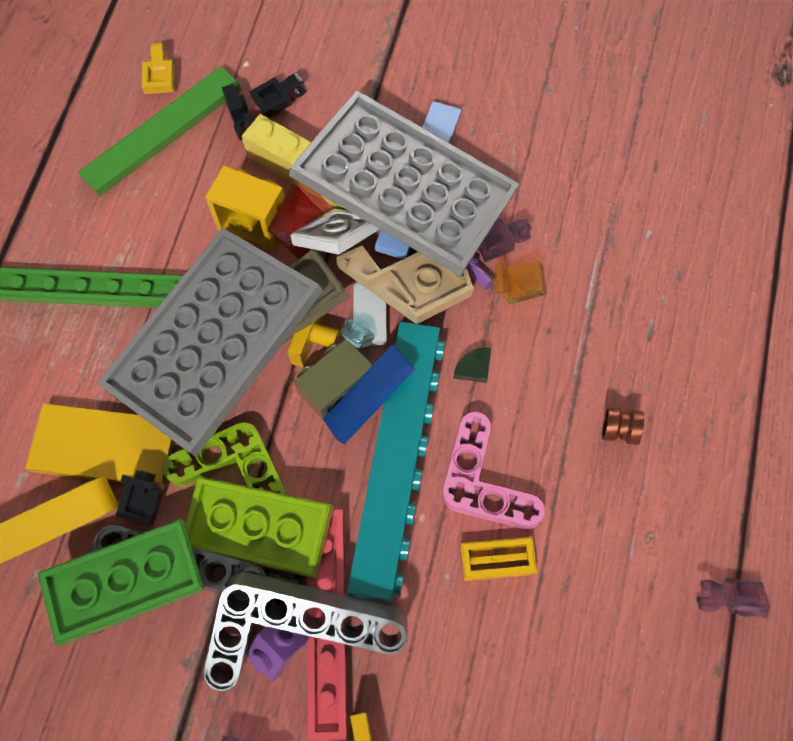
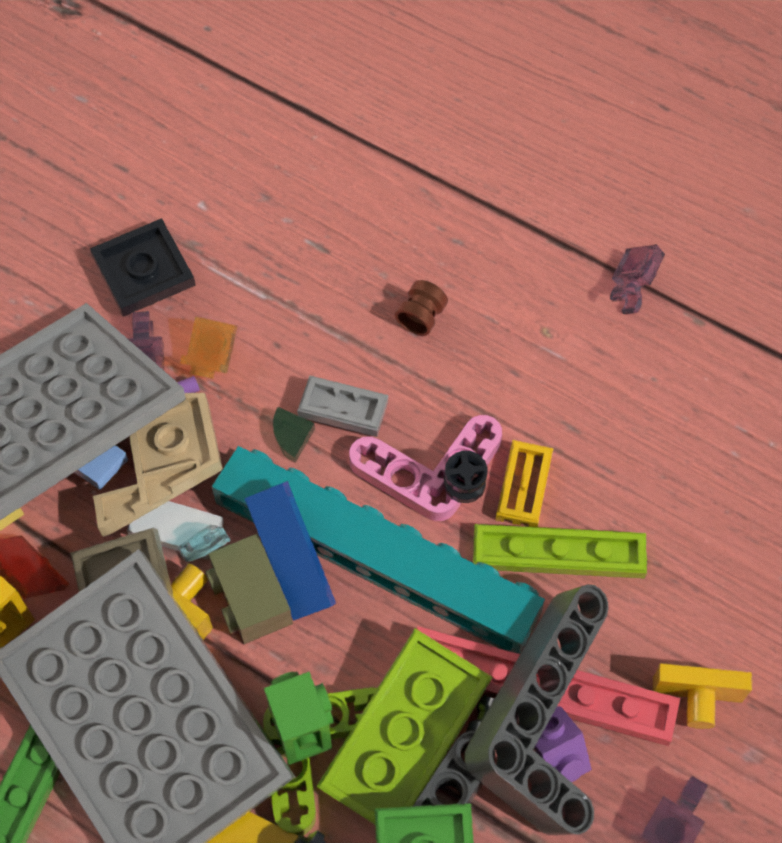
camera: 75 degrees left, 5 degrees down
(233, 440) = (300, 715): none -> bright green brick
(333, 232) = (57, 525): white tile -> none
(449, 606) = (561, 551): none -> lime tile
(480, 499) = (468, 467): none -> black wheel
(511, 395) = (343, 406): none -> light grey plate
(571, 211) = (142, 267): none -> black plate

